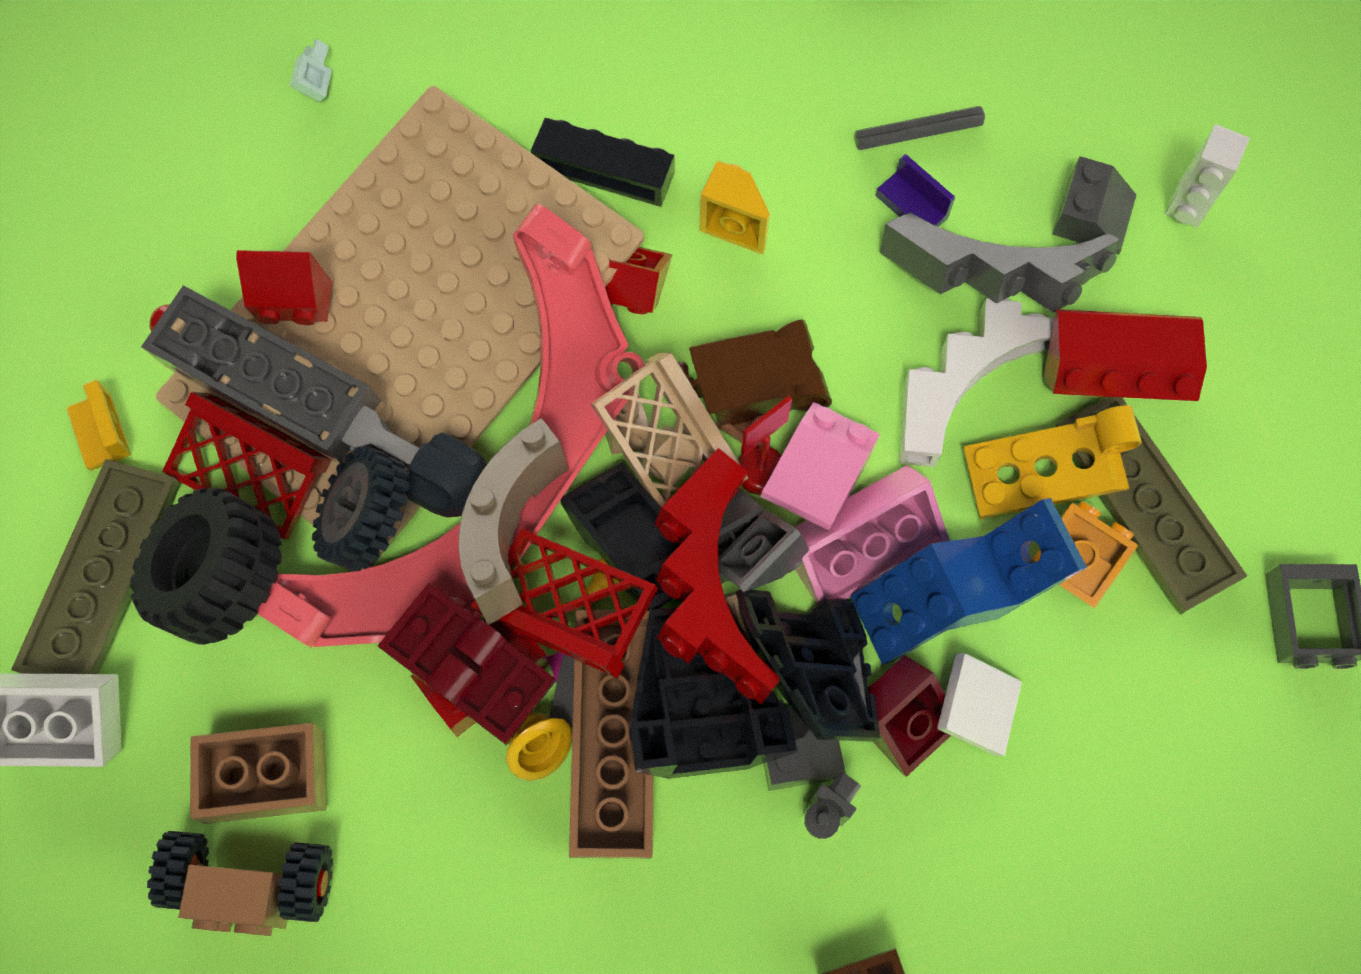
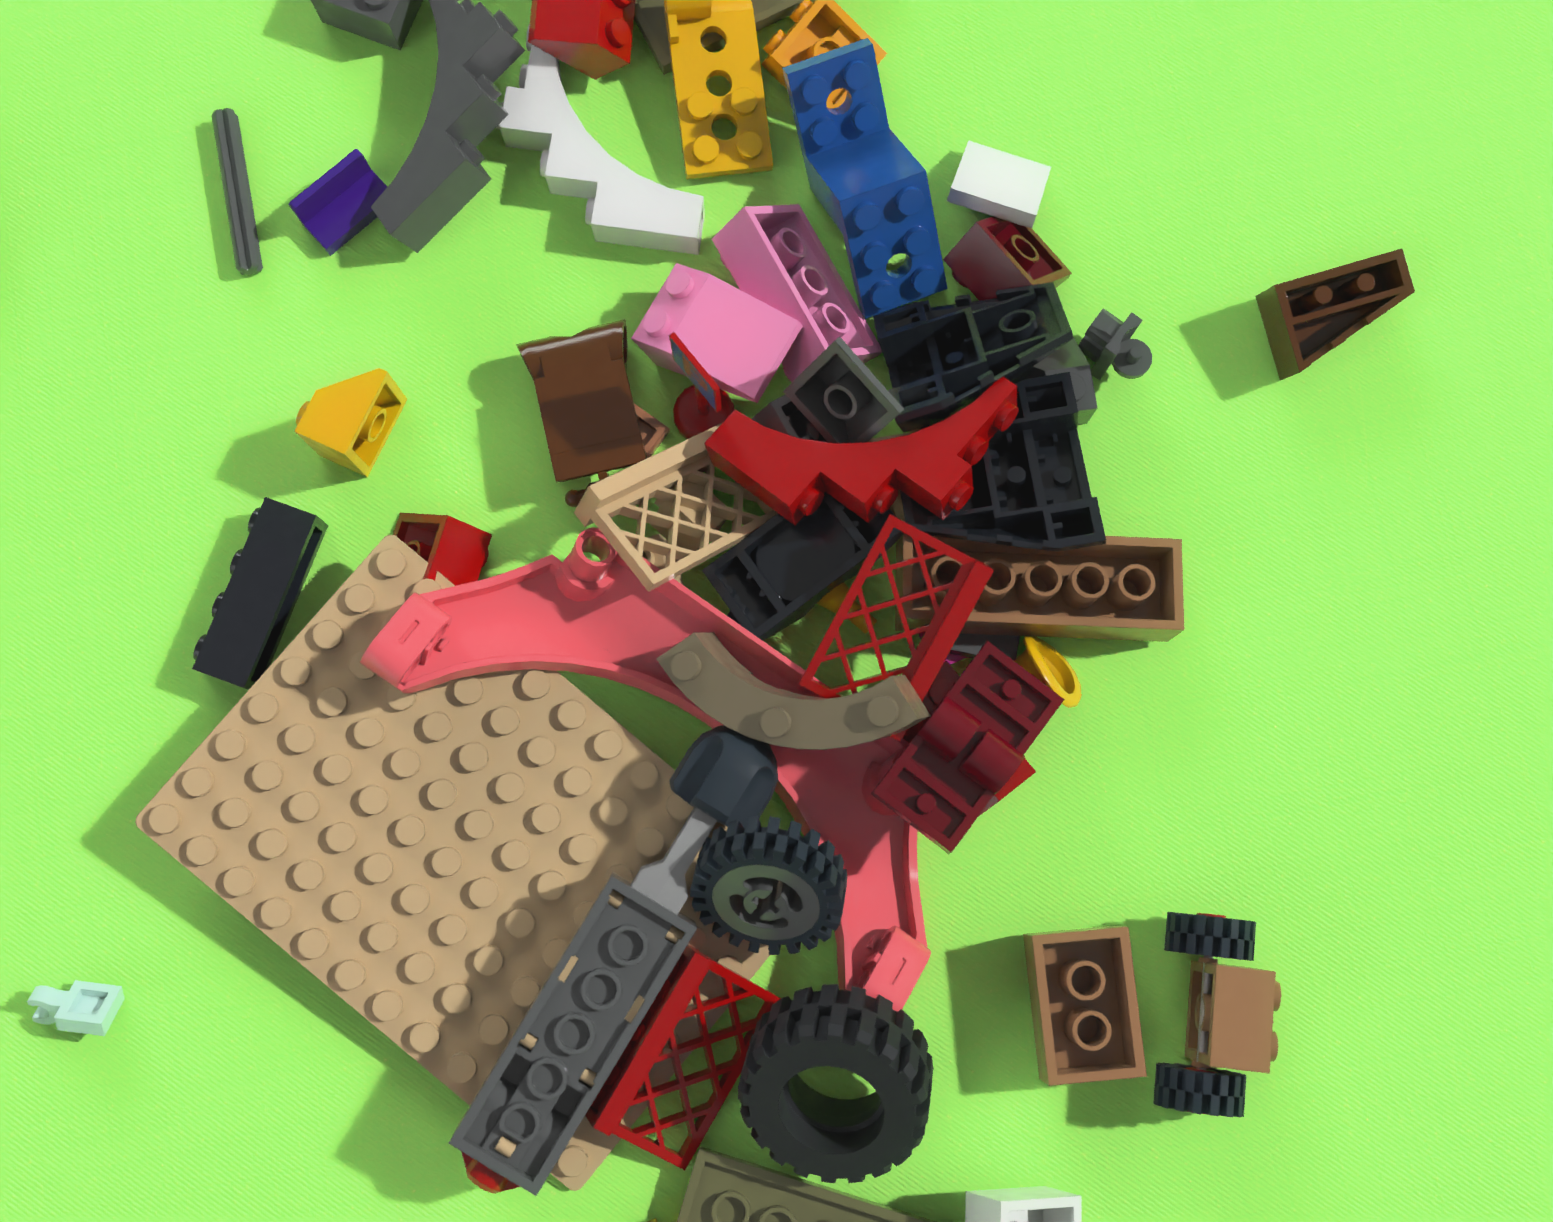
camera: 90 degrees left, 10 degrees up
(284, 286) = (448, 1009): red slope -> none

